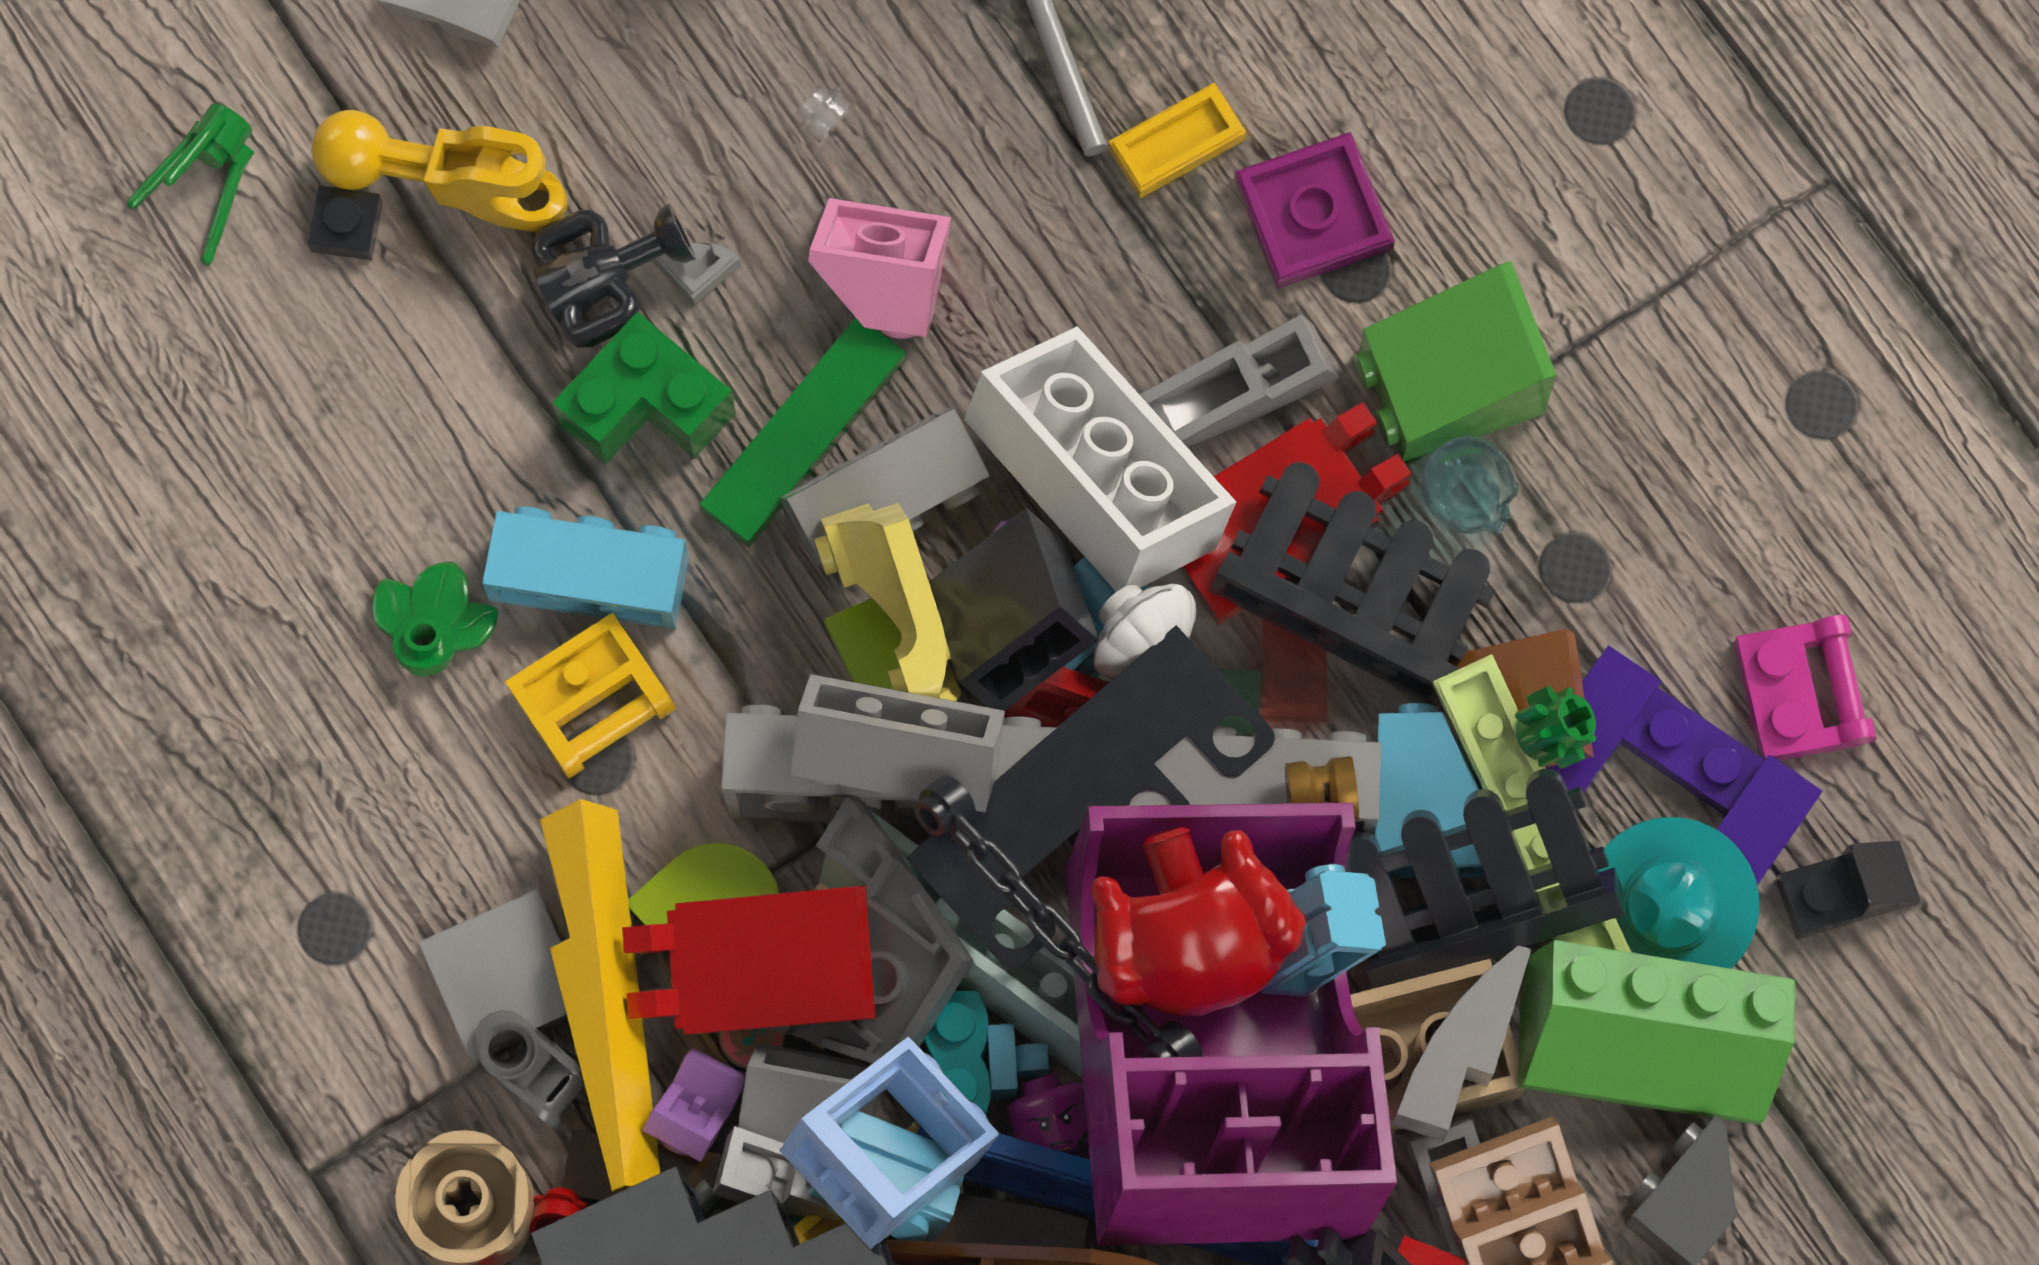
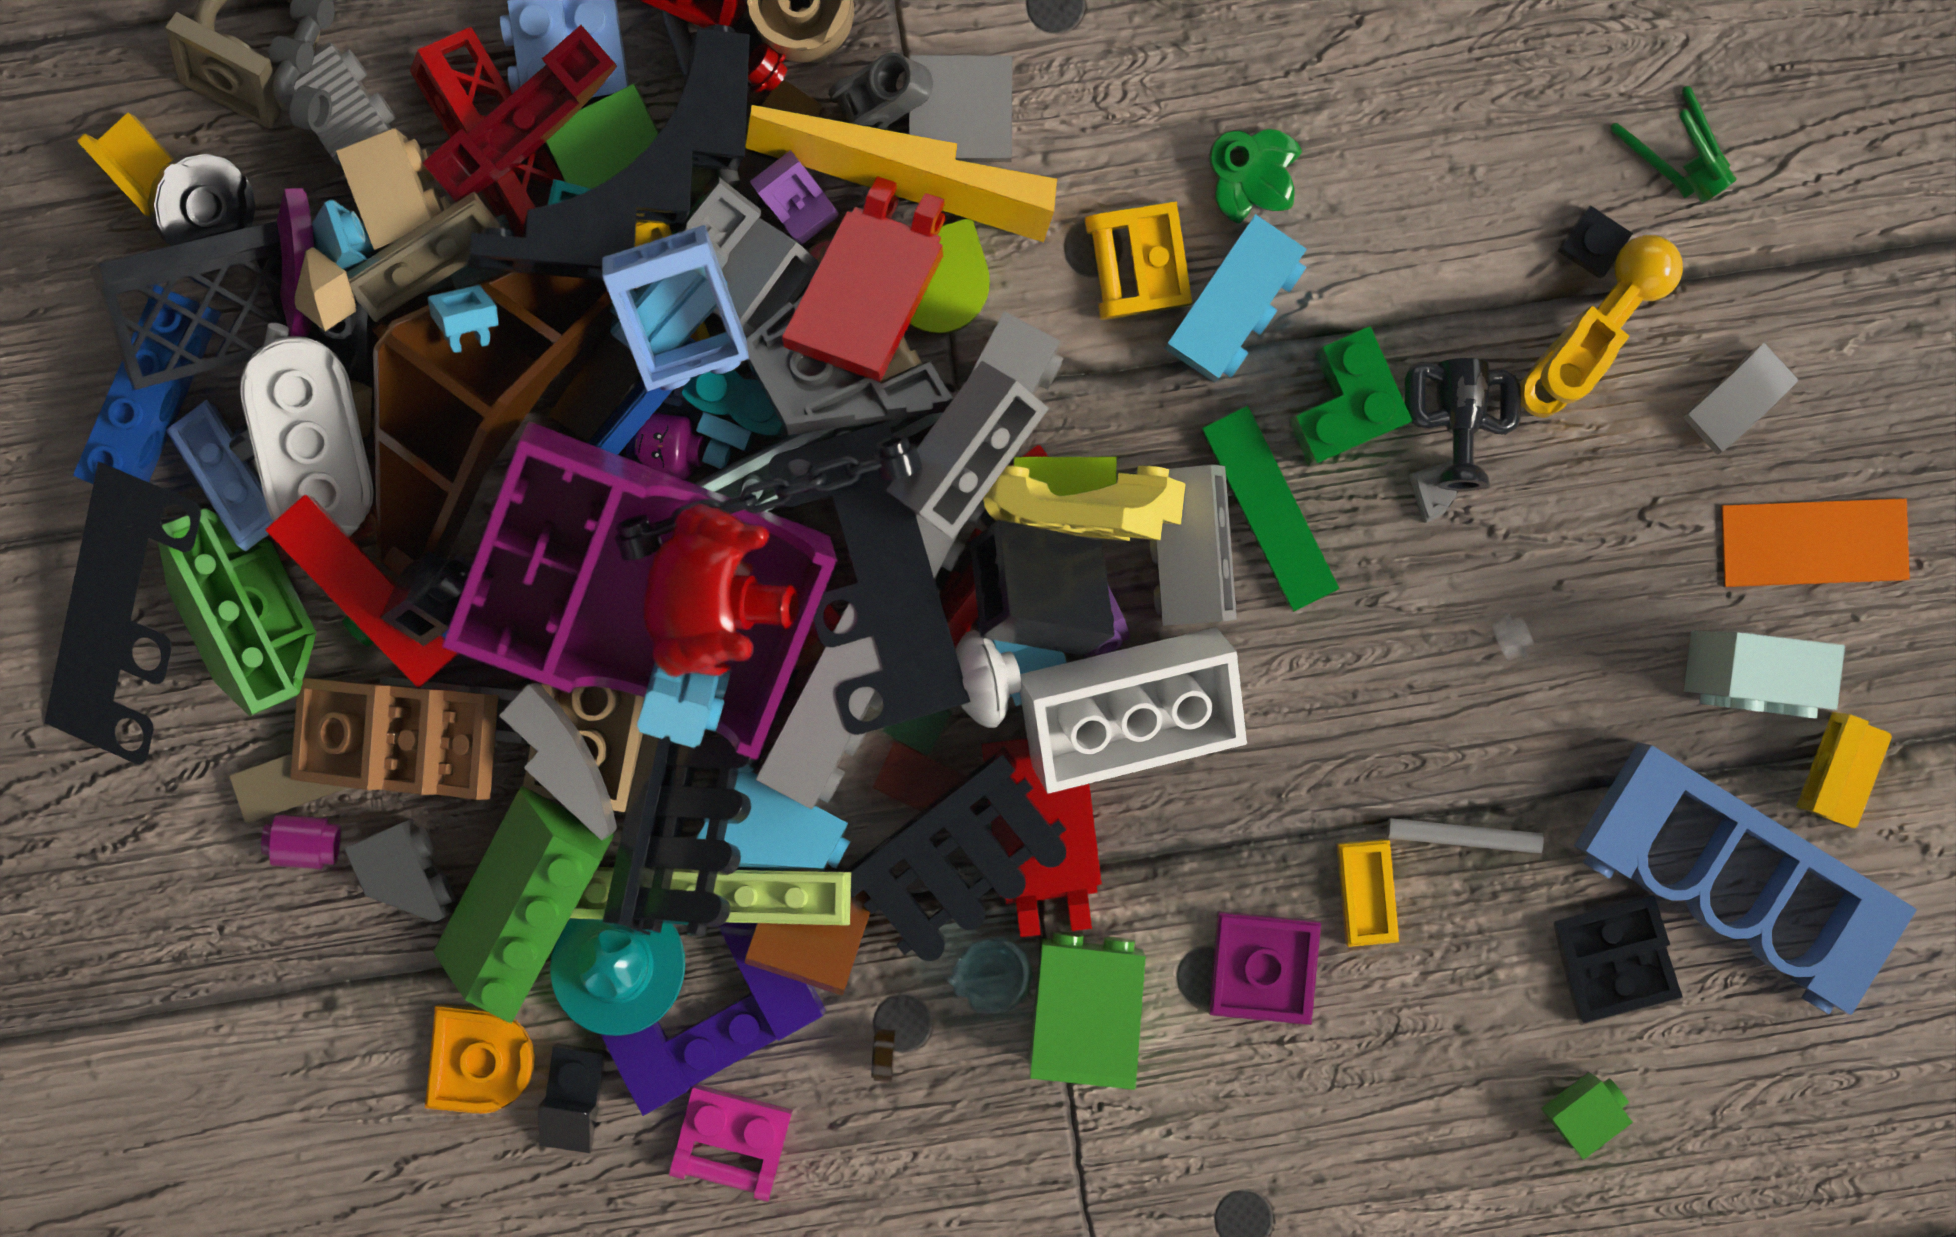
camera: 115 degrees right, 15 degrees up
(882, 263) = (1372, 625): bright pink slope -> none
(1243, 382) = (1152, 845): light grey slope -> none
(1306, 782) = (797, 736): pearl gold wheel -> none
(1555, 727) = (767, 943): green gear -> none
(1618, 564) = (883, 1055): none -> dark brown tile
(1862, 1017) = (476, 1060): none -> light orange tile

